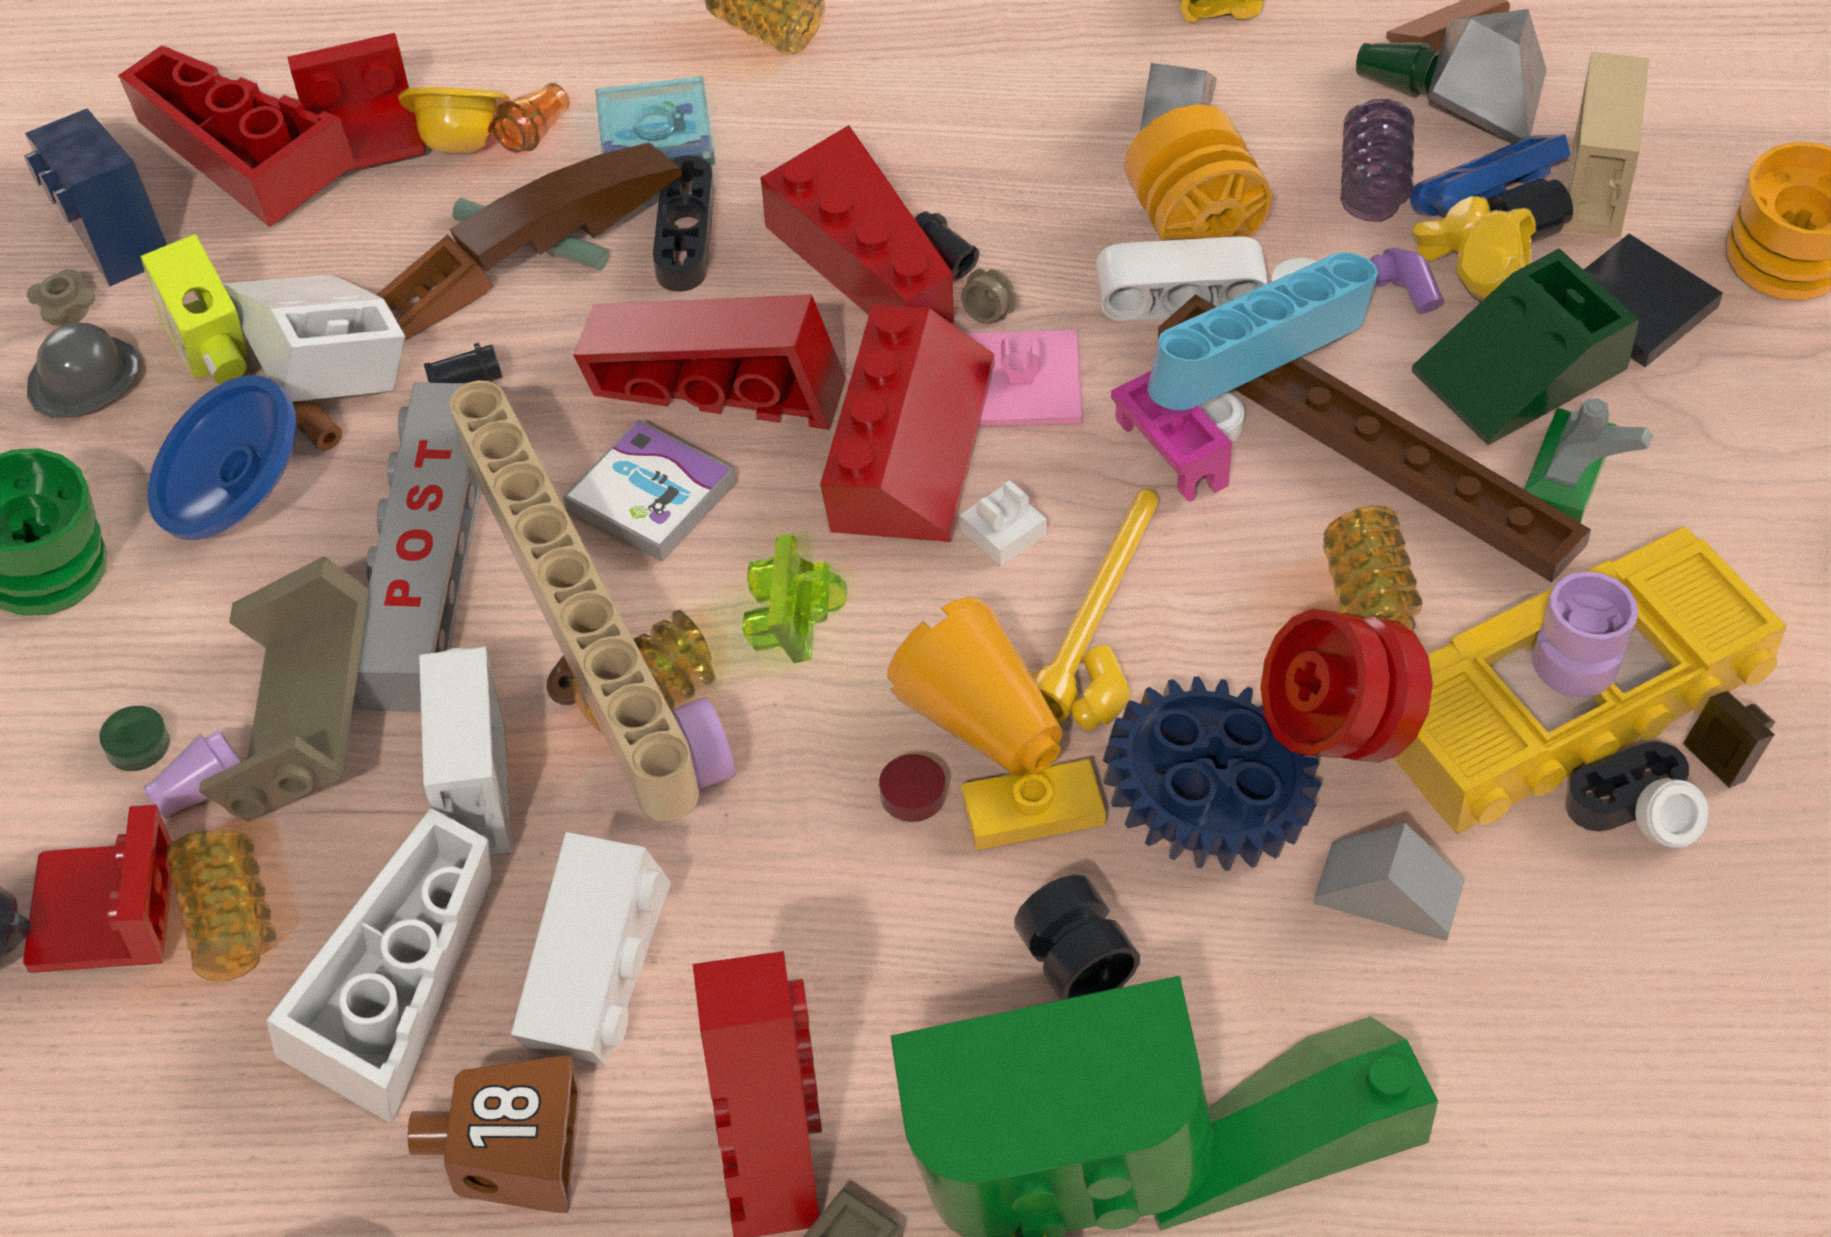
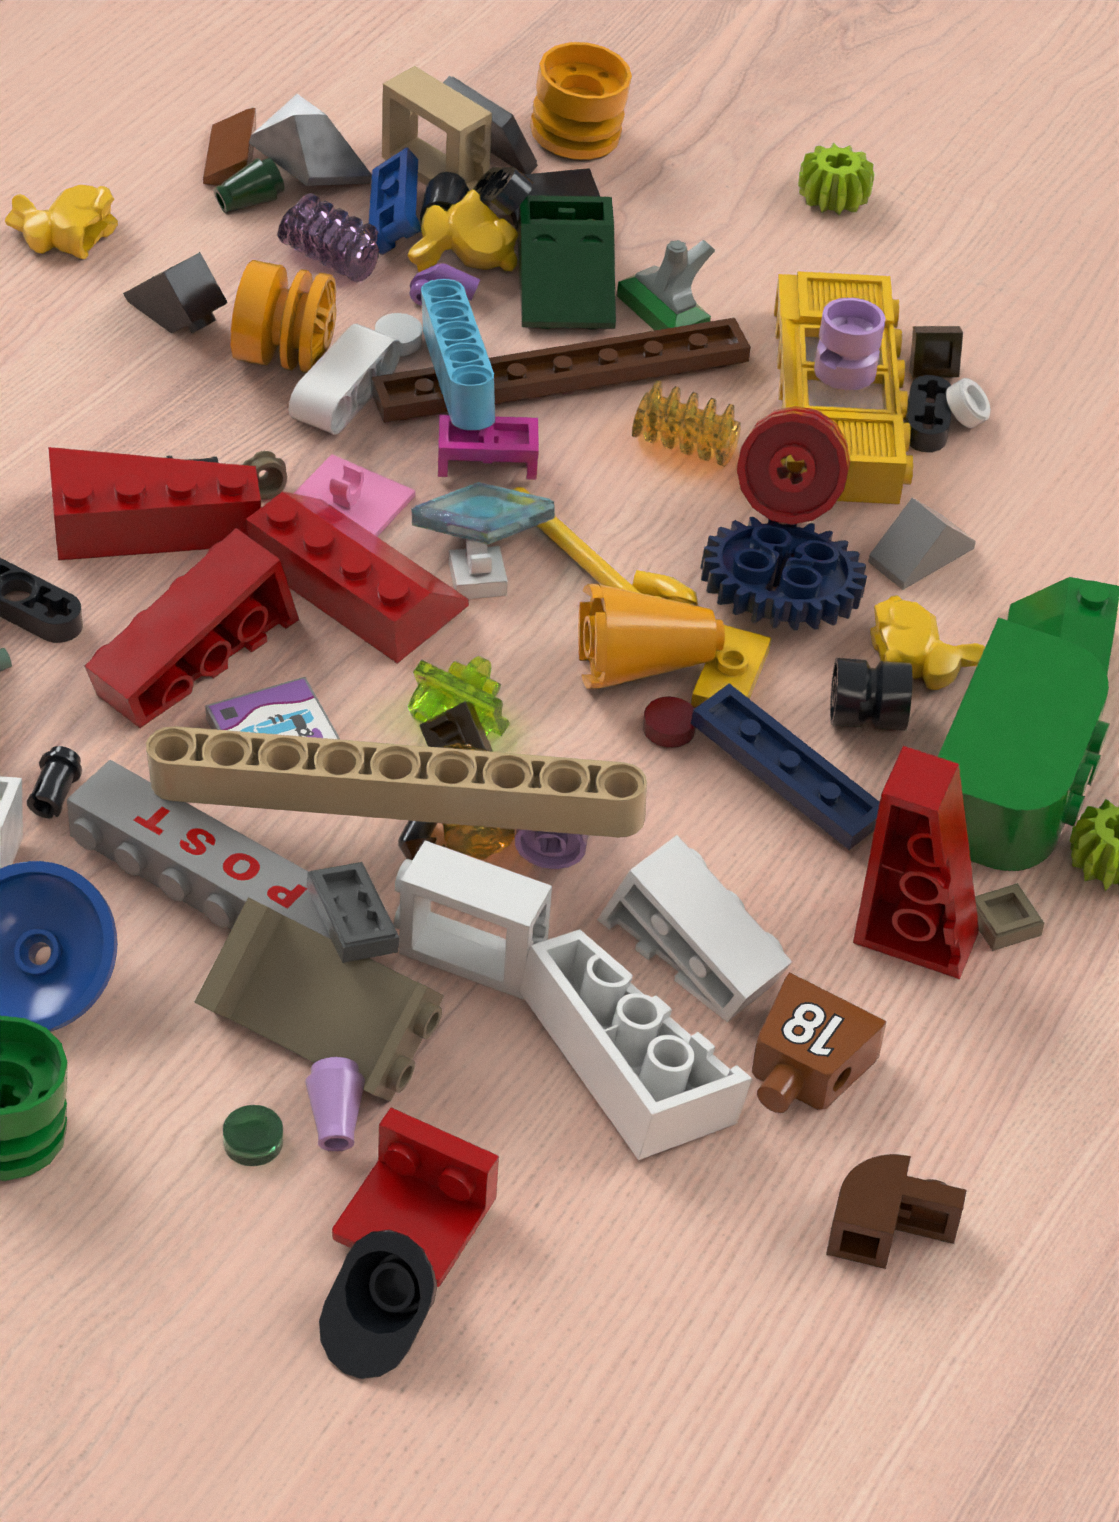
camera: 65 degrees left, 5 degrees down
(221, 903) = (488, 1126): clear yellow piece -> none
(386, 649) = (352, 912): none -> dark grey plate
(727, 617) = (456, 726): none -> dark brown tile
(910, 919) = (787, 765): none -> dark blue plate
(1063, 477) = (483, 513): none -> clear light blue tile
(1204, 945) = (911, 635): none -> yellow animal
(1568, 231) = (503, 189): none -> black beam
(1669, 174) = (506, 136): none -> black tile

